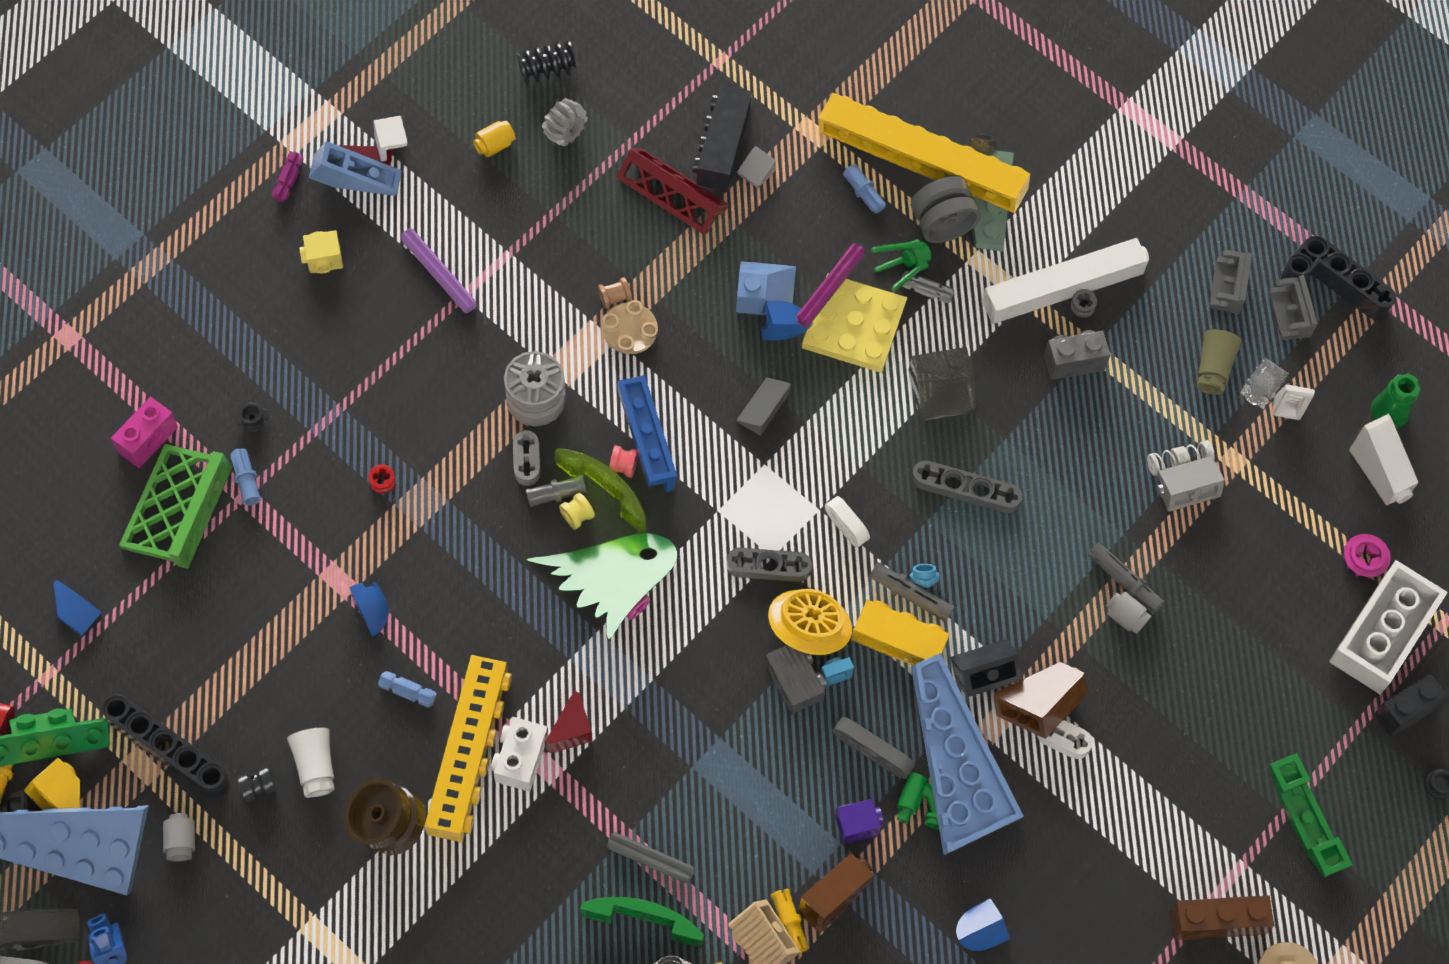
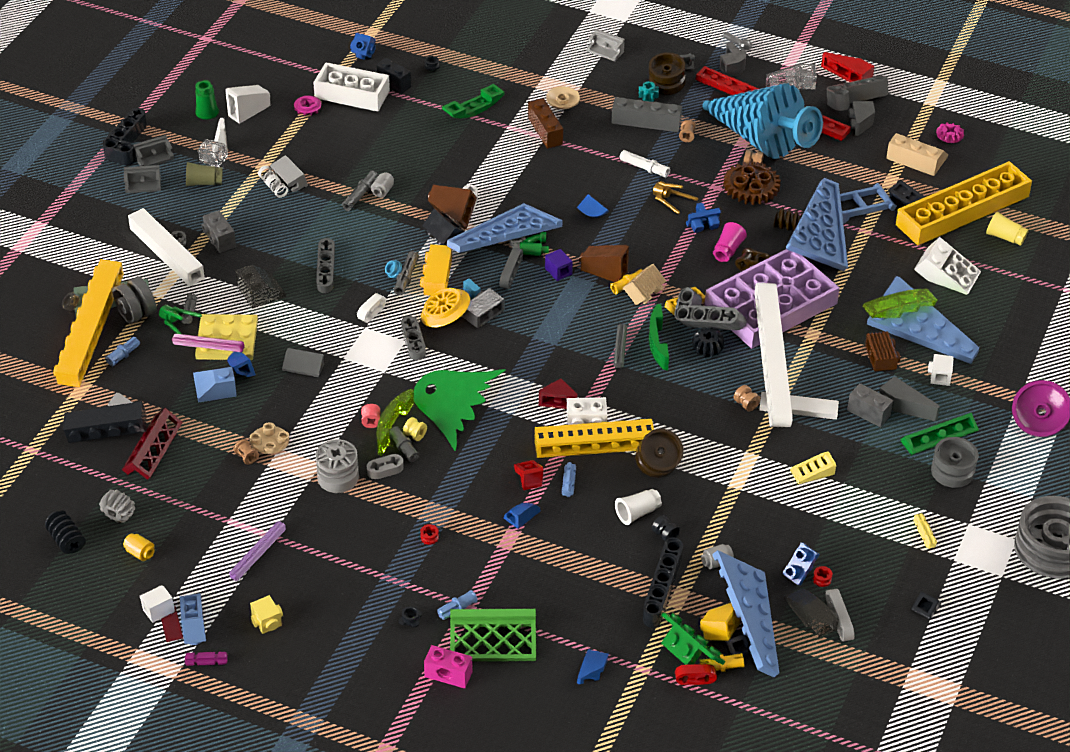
camera: 105 degrees left, 20 degrees down
(434, 632) = (530, 473): none -> red slope
(647, 432) = (347, 404): blue fence -> none

